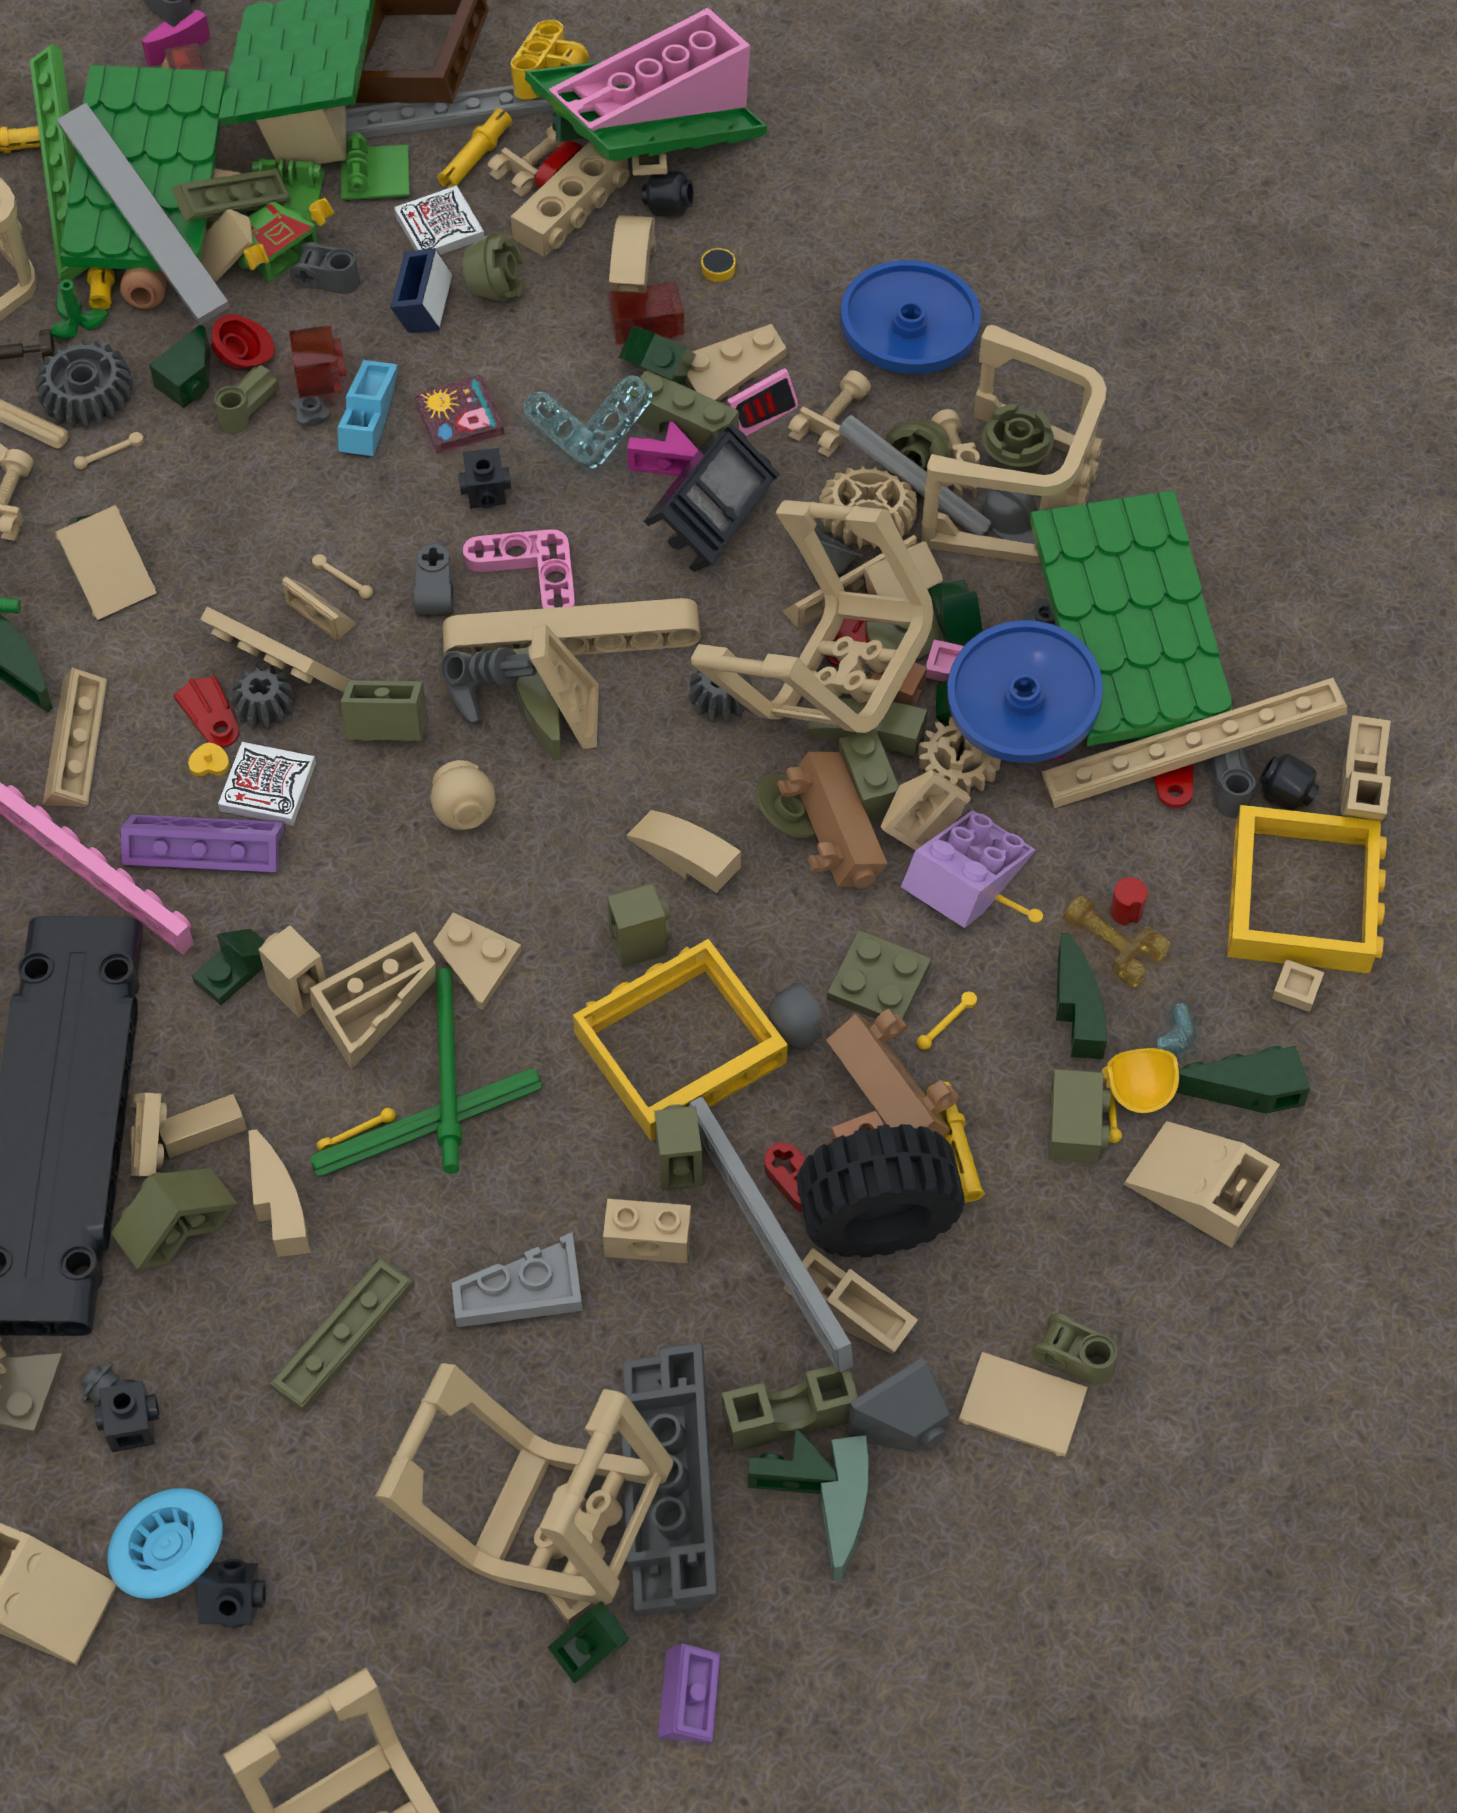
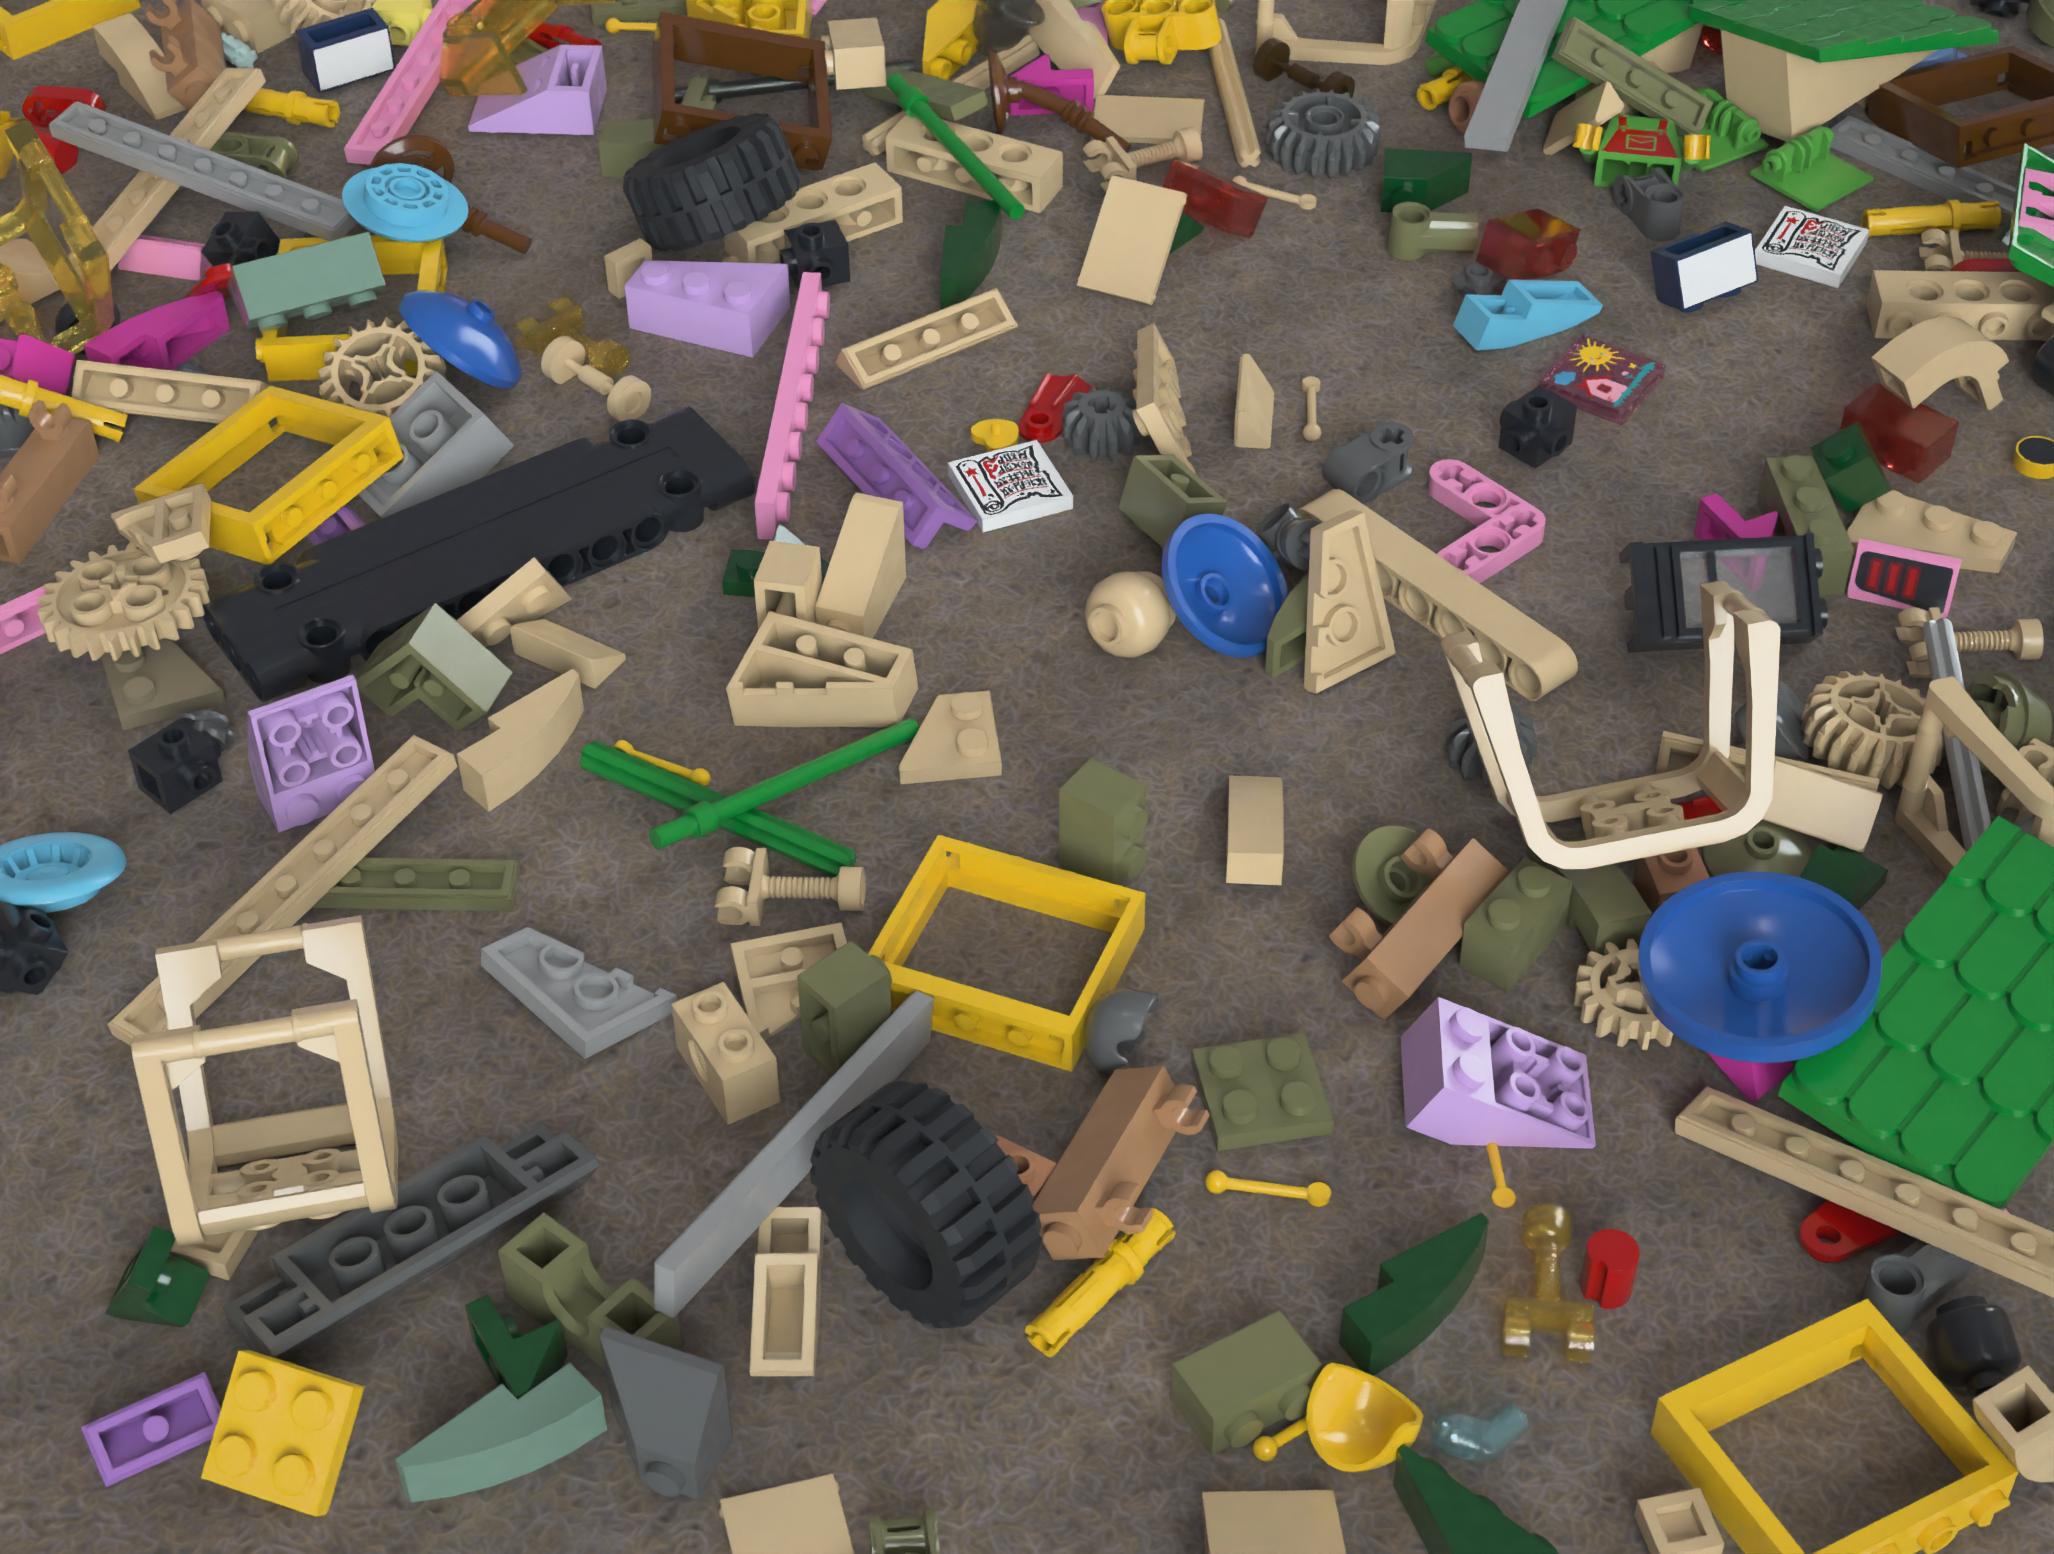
camera: 55 degrees right, 15 degrees down
(70, 309) = (1400, 85): green plant -> none
(99, 488) = (1216, 199): none -> clear red brick
(207, 1328) = (309, 752): none -> lavender slope
(241, 342) = (1489, 188): red piece -> none
(291, 902) = (864, 567): none -> tan slope
(304, 1409) = (307, 871): none -> tan tile
(489, 732) = (1223, 584): none -> blue dish
(492, 268) = (1798, 295): olive cone -> none
(559, 1089) = (752, 869): none -> tan bar
(584, 434) = (1692, 473): clear light blue beam -> none
(604, 1160) = (769, 971): none -> tan wing
(763, 1620) = (282, 1432): none -> yellow plate
(924, 809) = (1518, 987): tan slope -> none

